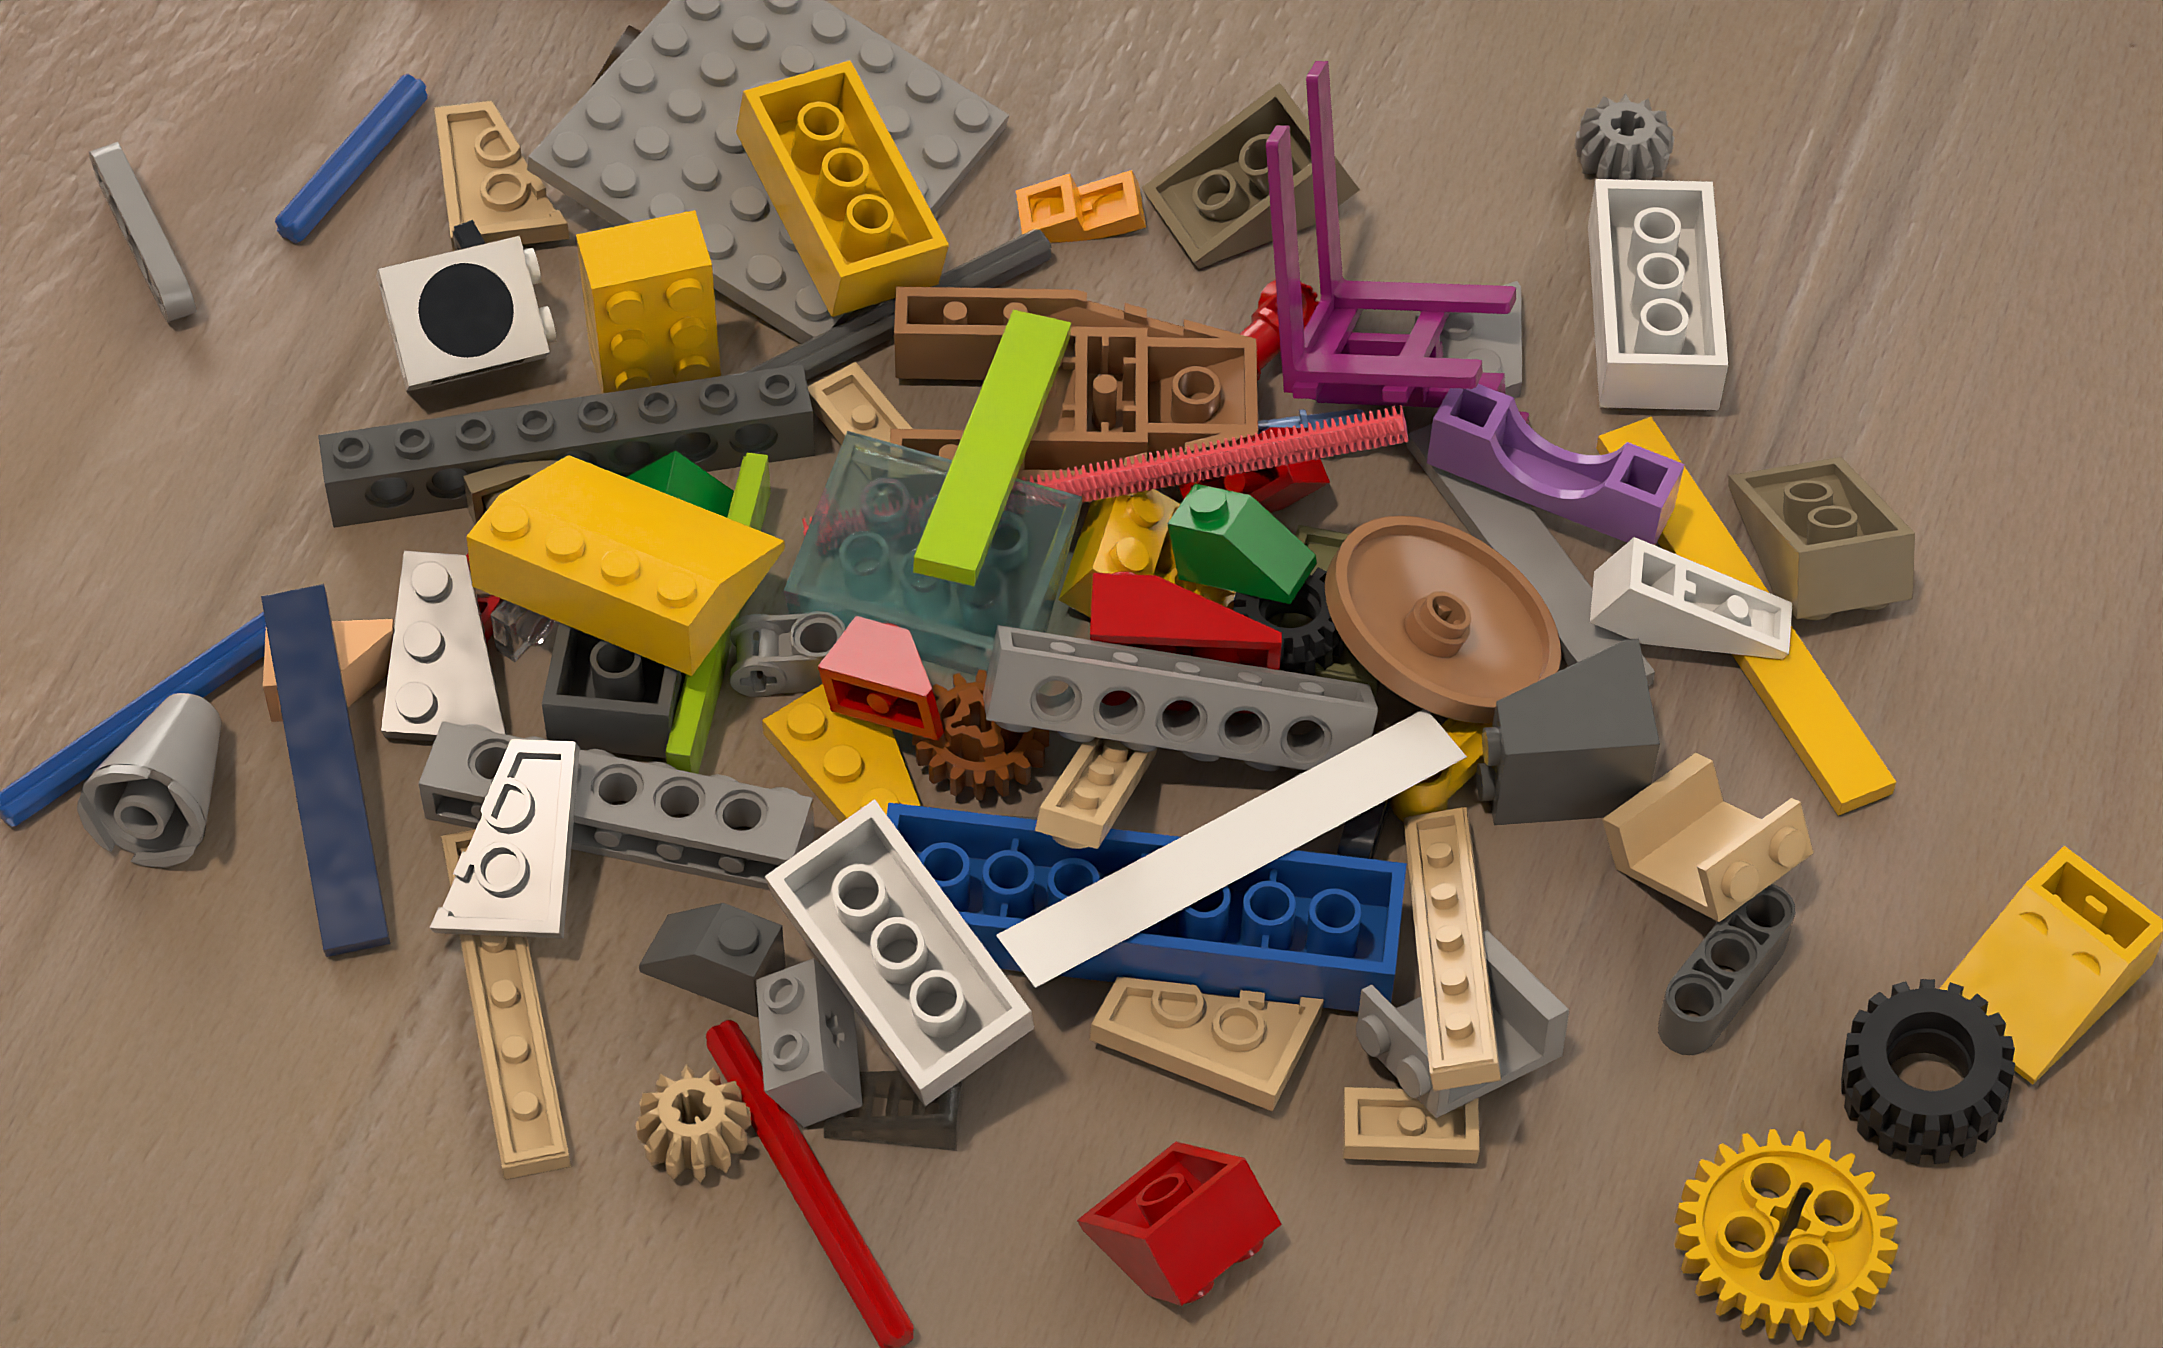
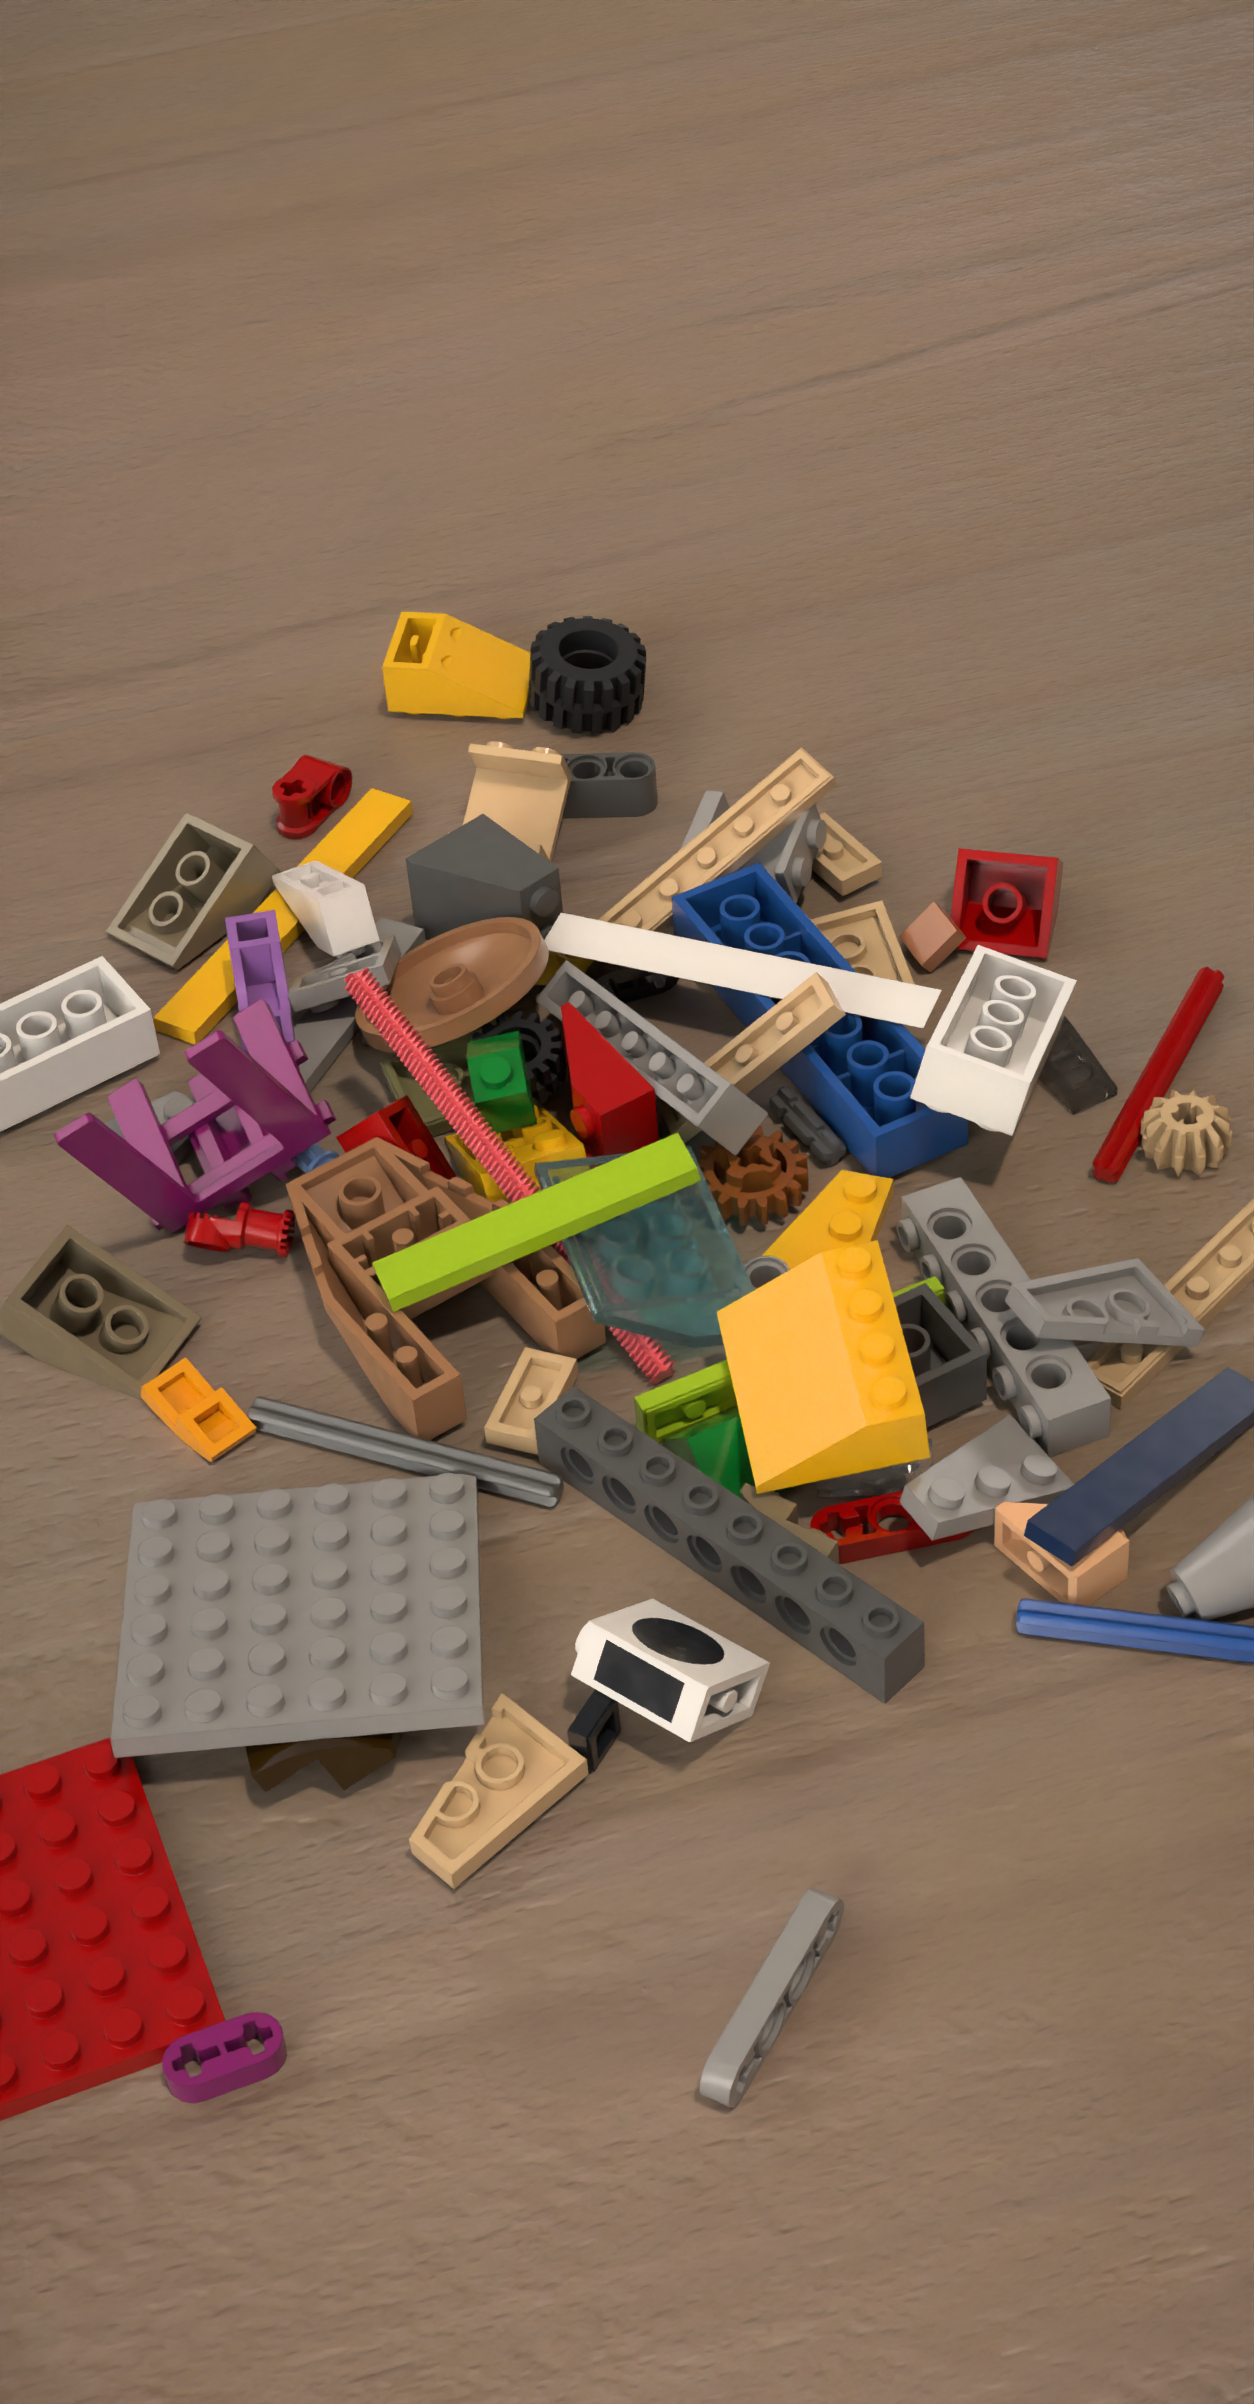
camera: 120 degrees left, 10 degrees down
(351, 158) = (548, 1916): blue axle -> none
(649, 303) = (572, 1520): yellow brick -> none
(716, 954) = (1057, 1195): dark grey slope -> none
(808, 1043) = (1078, 1099): light grey brick -> none
(841, 187) = (342, 1482): yellow brick -> none
(880, 679) = (769, 1210): slope -> none
(1187, 1118) = (932, 937): none -> nougat tile
(1549, 566) = (326, 985): none -> light grey wing
(1845, 1258) = (747, 690): yellow gear -> none
(1928, 716) = (310, 795): none -> red piece

